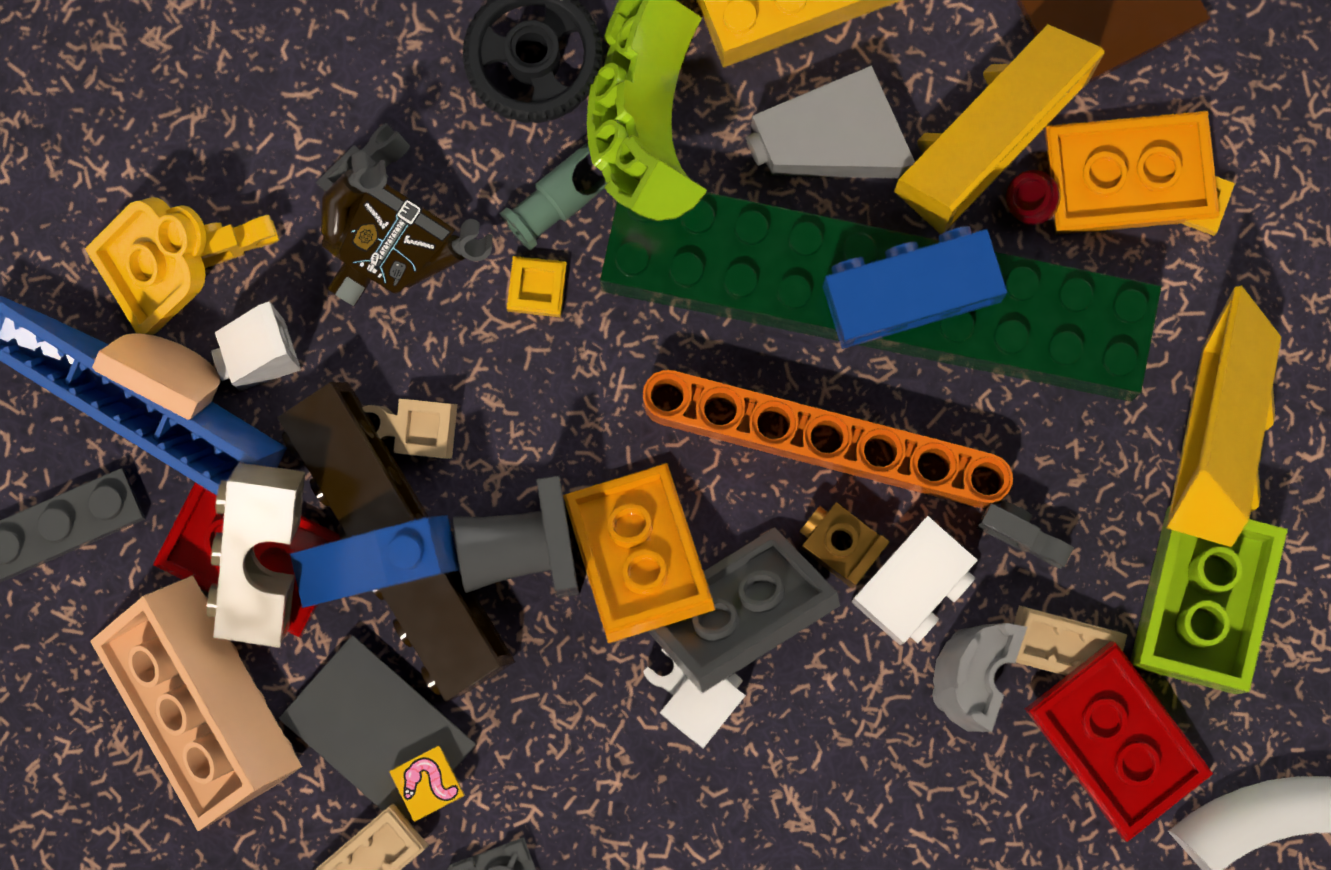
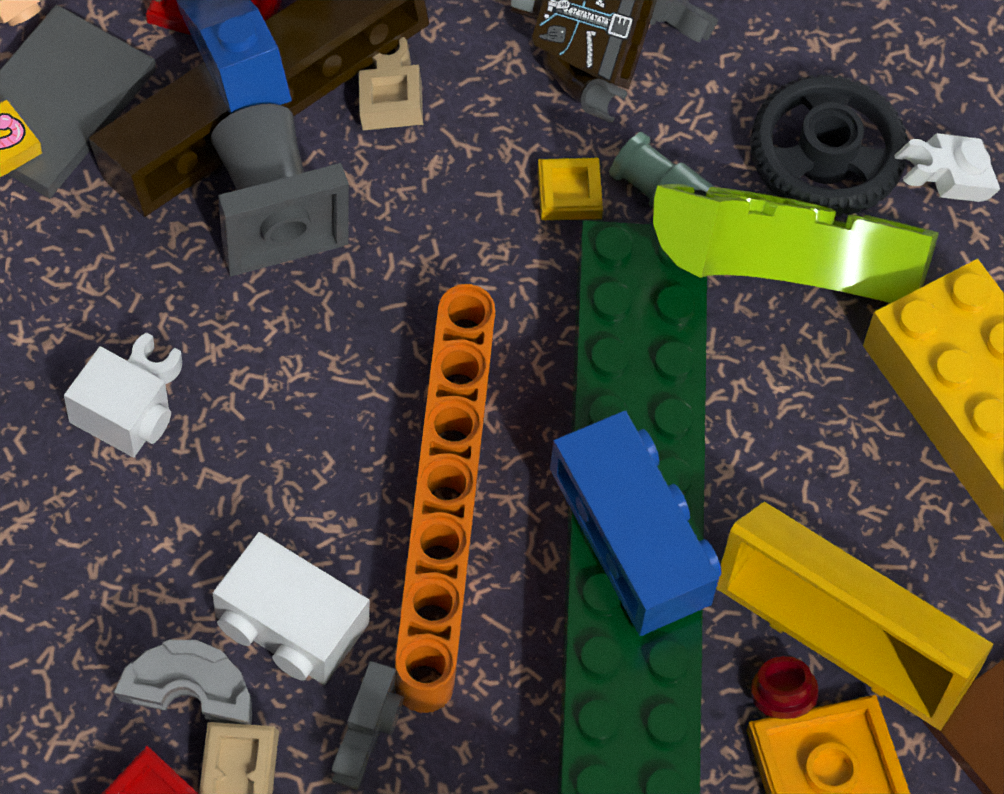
camera: 75 degrees right, 20 degrees down
(638, 553) = (280, 309): light orange tile -> none
(759, 602) = (228, 412): dark grey plate -> none
(832, 133) = (814, 450): light grey slope -> none
(847, 564) = (327, 543): pearl gold brick -> none

